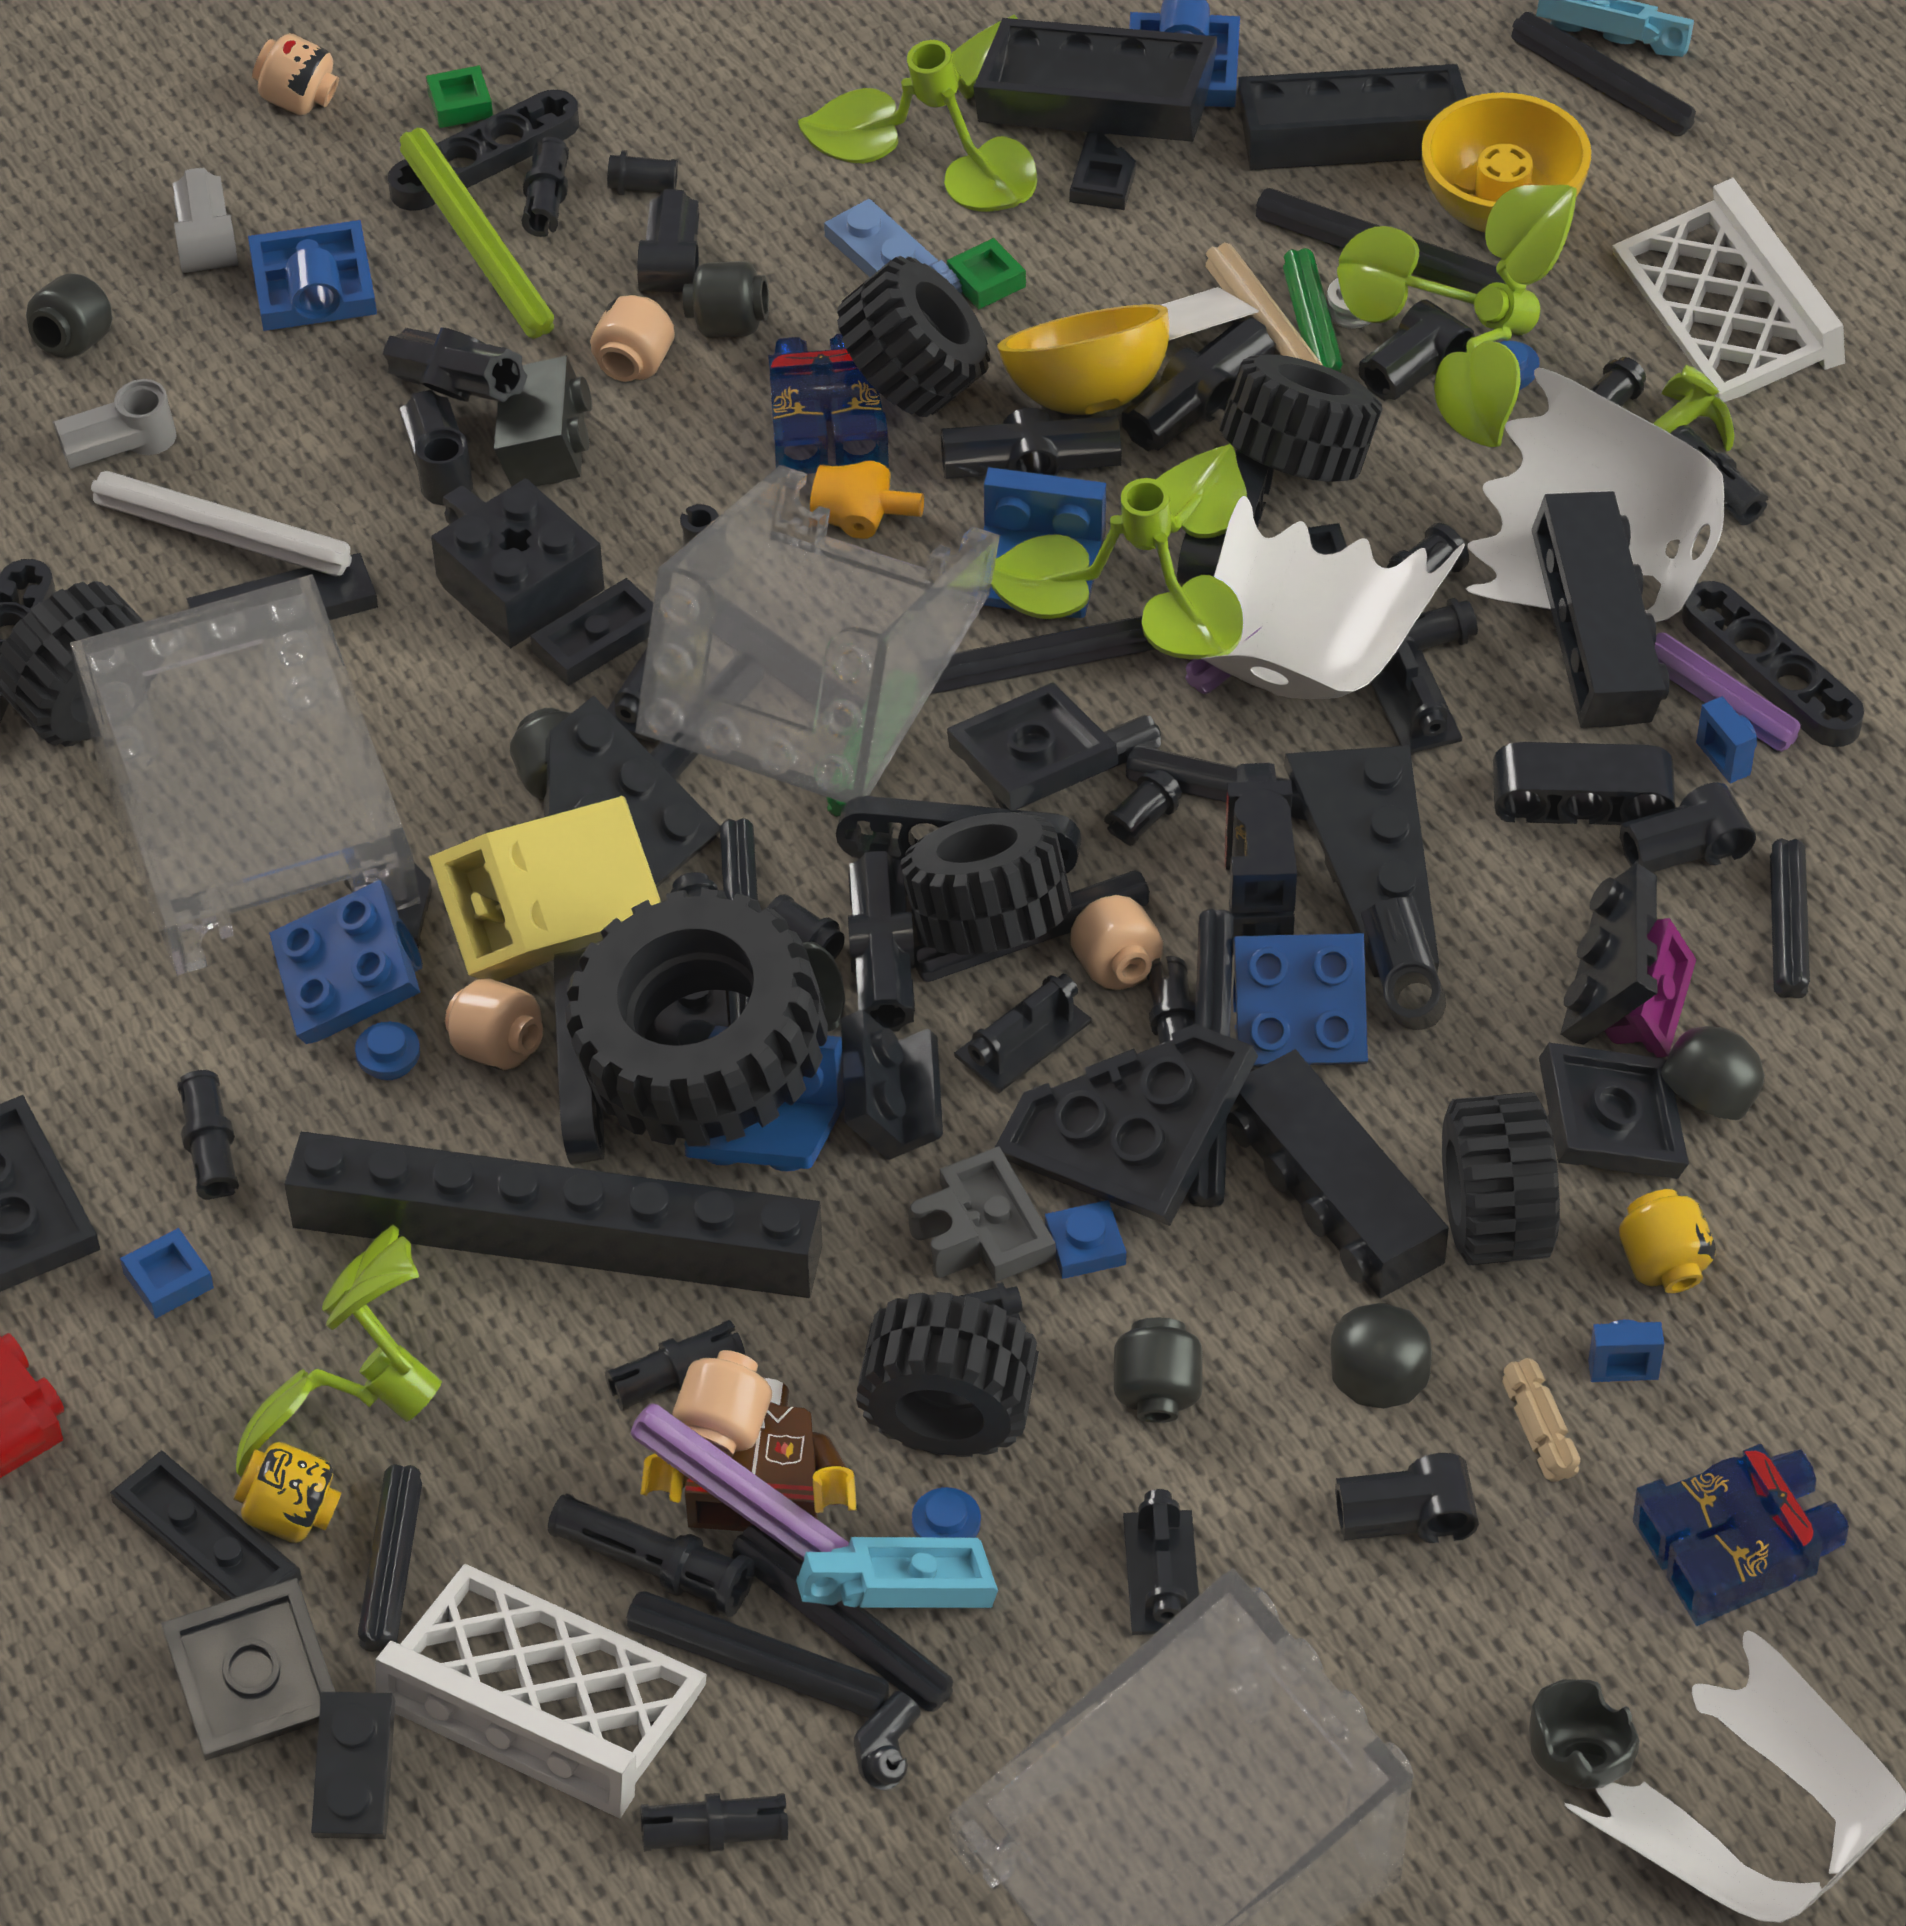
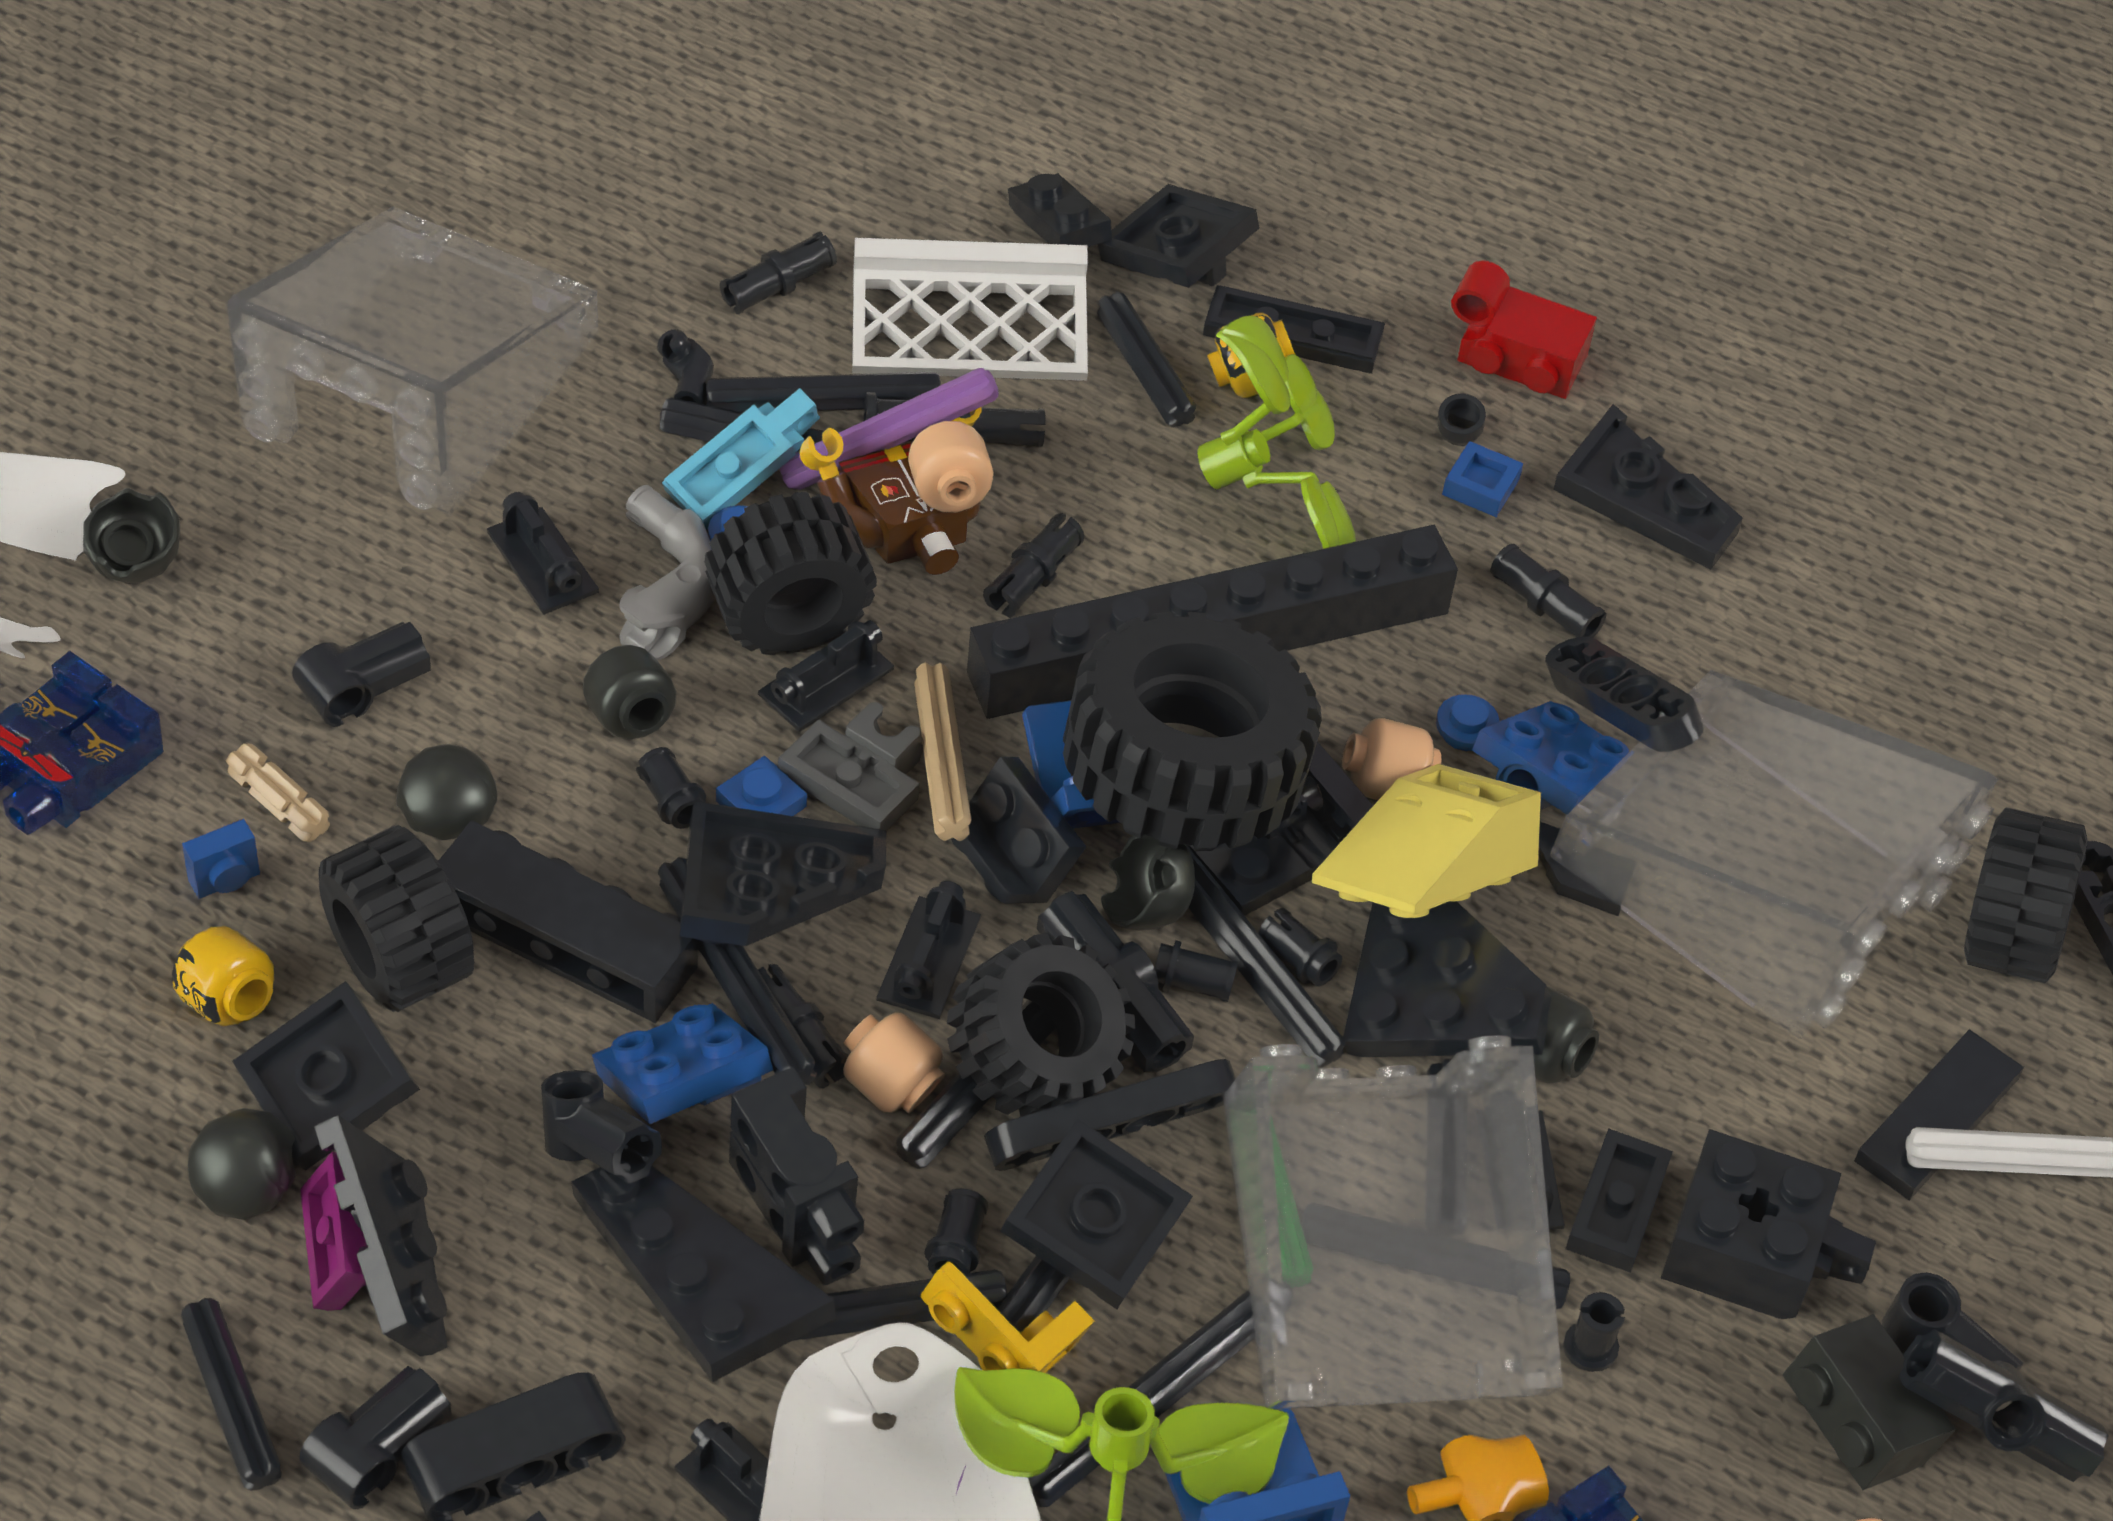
camera: 145 degrees right, 0 degrees up
(142, 1336) = (1464, 412): none -> black hinge
(262, 957) = (1625, 694): none -> black beam
(900, 1186) = (942, 752): none -> tan axle
(1073, 1448) = (674, 603): none -> light grey piece
(1147, 687) = (967, 1313): none -> yellow bracket
(1166, 1258) = (669, 786): none -> black pin

